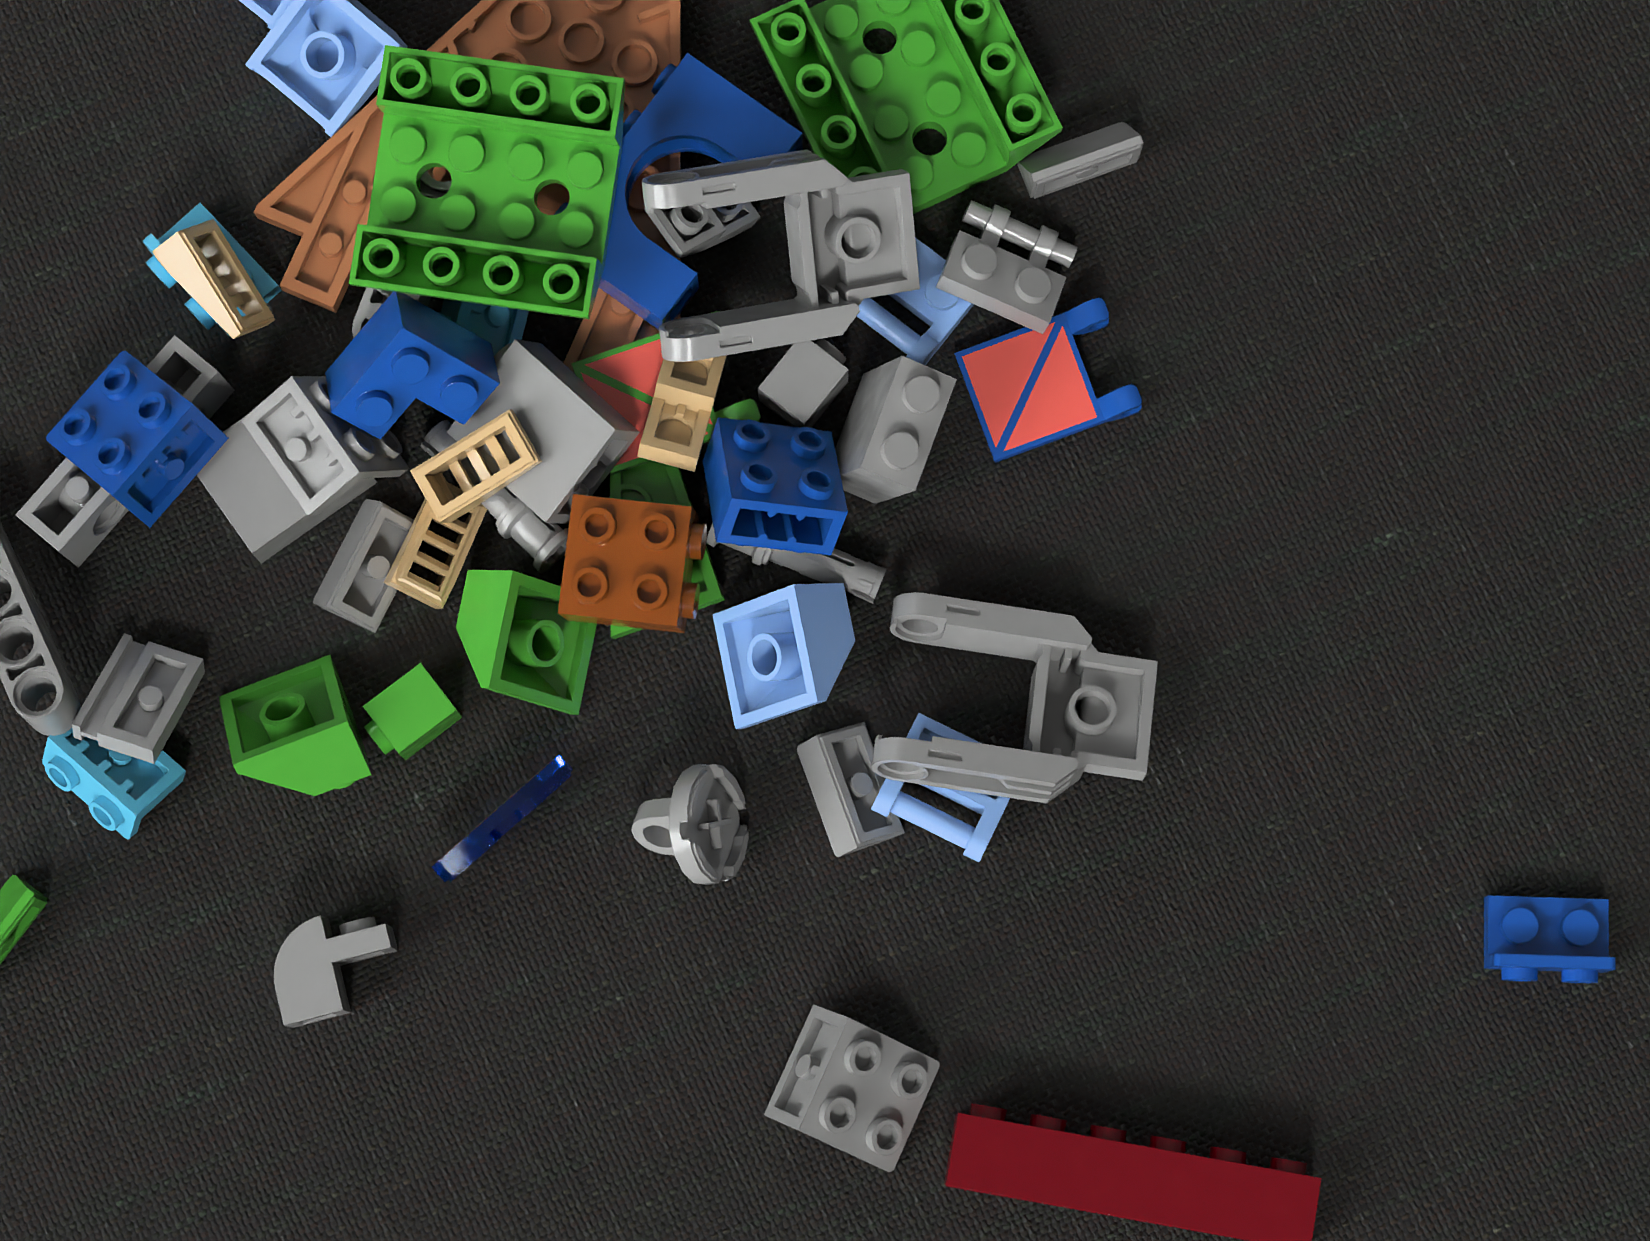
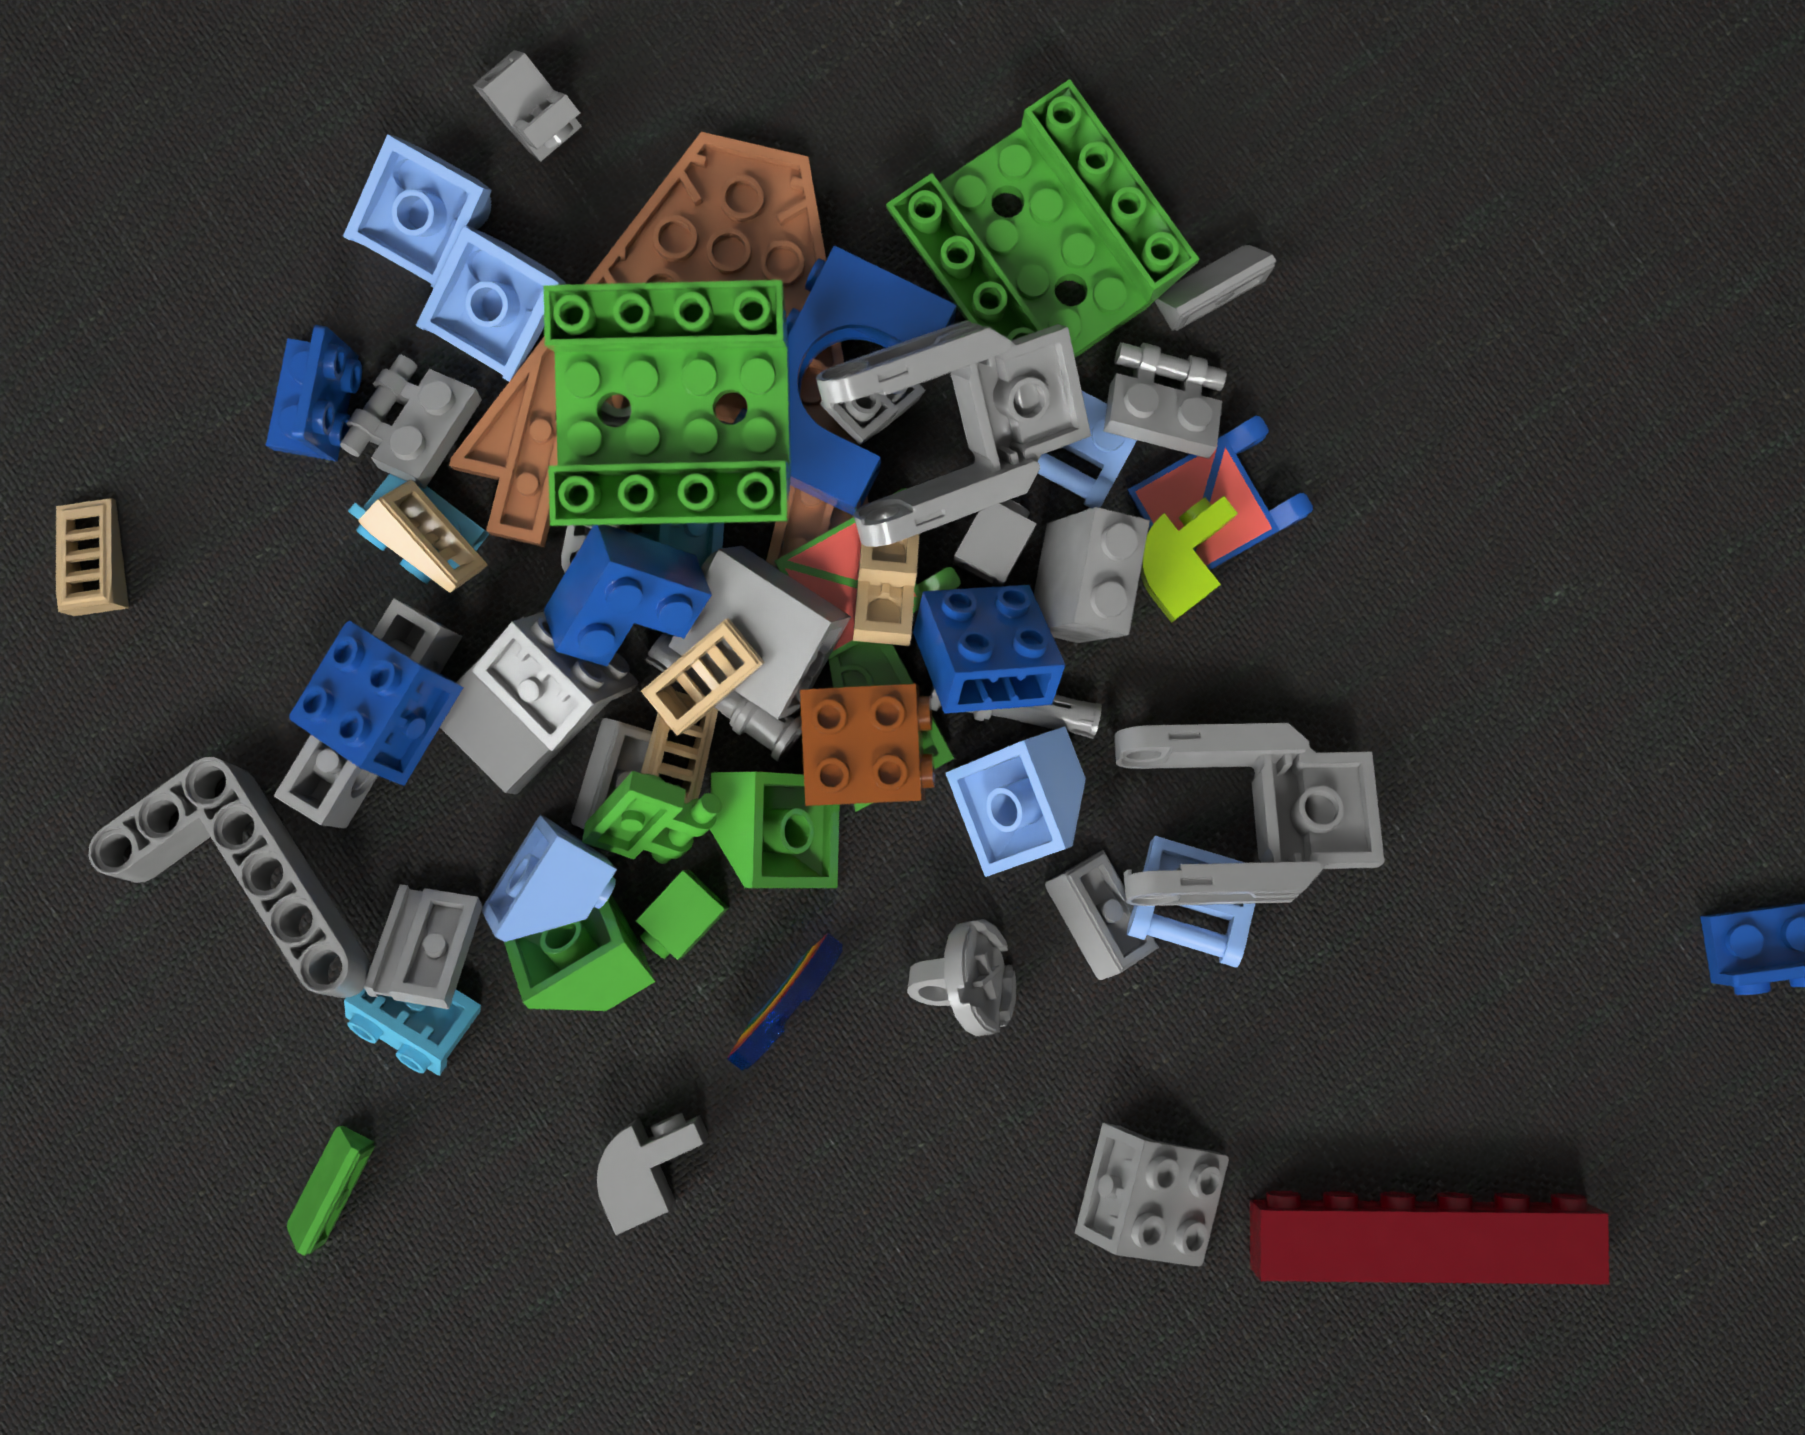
camera: 10 degrees left, 5 degrees up
(127, 120) = (314, 396): none -> blue bracket
(233, 172) = (423, 430): none -> light grey plate
(281, 653) = (548, 884): none -> light blue slope
(384, 594) = (650, 817): none -> bright green plate
(982, 432) = (1170, 565): none -> lime brick

